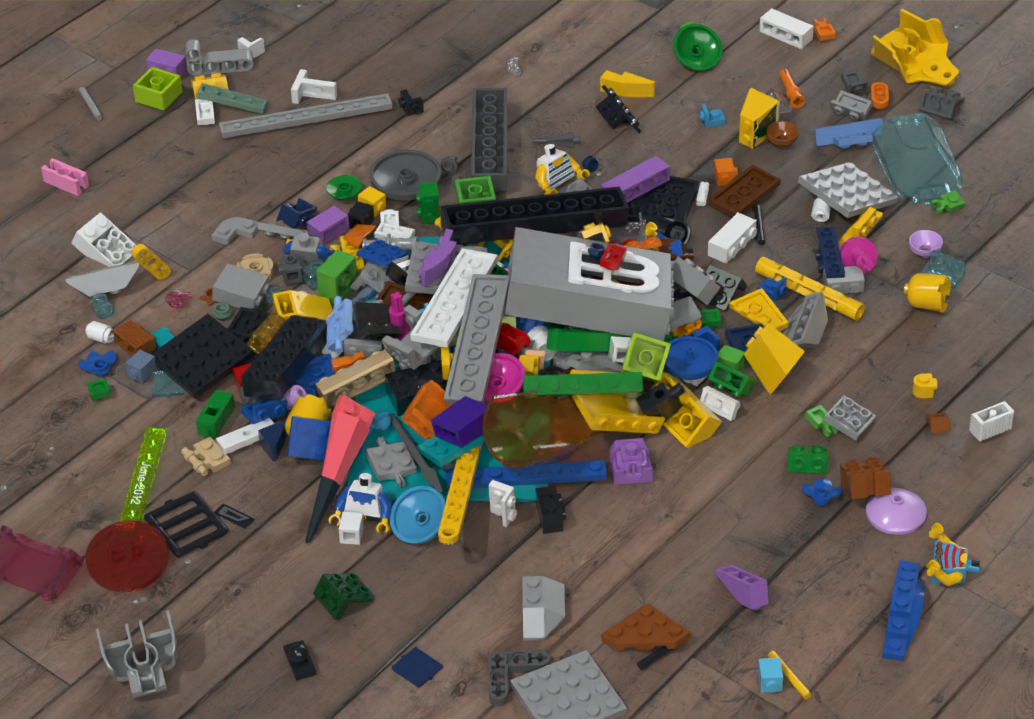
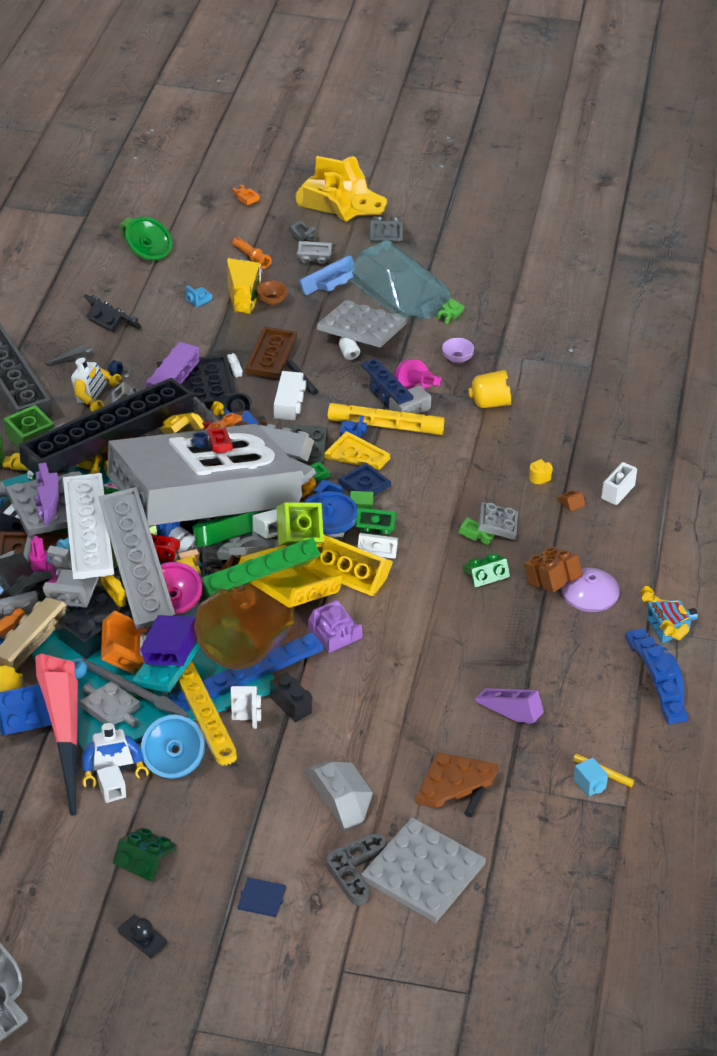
camera: 30 degrees left, 0 degrees up
(627, 84) = (104, 288): yellow slope -> none
(661, 401) = (334, 559): black torso -> none
(724, 171) = (242, 340): orange brick -> none
(772, 356) = (403, 488): yellow slope -> none
(786, 28) = (213, 202): white brick -> none
(808, 321) = (405, 450): light grey wedge -> none
(821, 491) = (517, 594): blue plate -> none
(862, 225) = (394, 352): yellow bracket -> none
(879, 95) = (331, 235): orange plate -> none
(946, 265) = (487, 363): clear light blue bracket -> none

